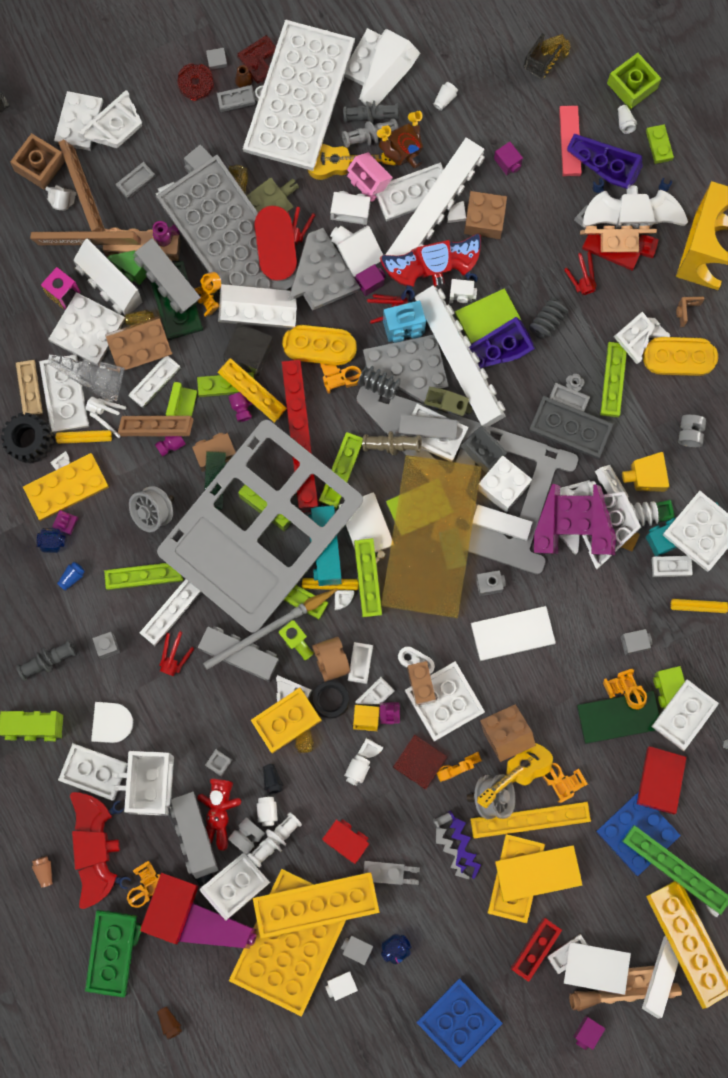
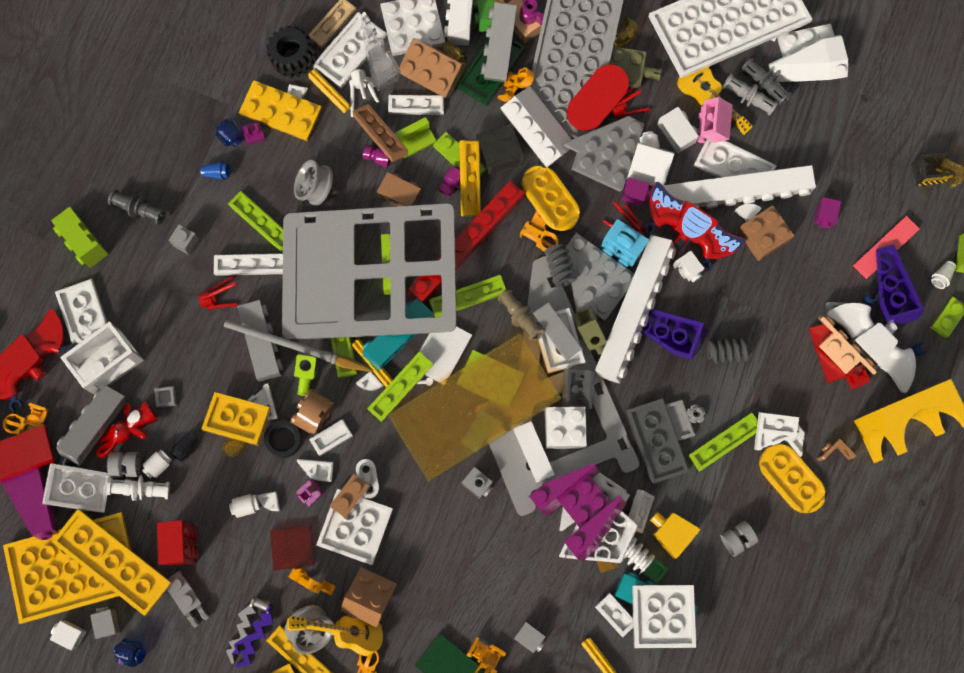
camera: 45 degrees right, 0 degrees up
(111, 723) = (130, 293): white tile -> none
(214, 464) = (388, 198): clear green tile -> none
(366, 718) = (291, 477): yellow piece -> none
(403, 143) = (763, 124): reddish brown torso -> none
(445, 95) = (832, 124): white cone -> none
(486, 315) = (688, 301): lime tile -> none
(513, 633) = (454, 534): white tile -> none
(587, 284) = (782, 356): red plant -> none

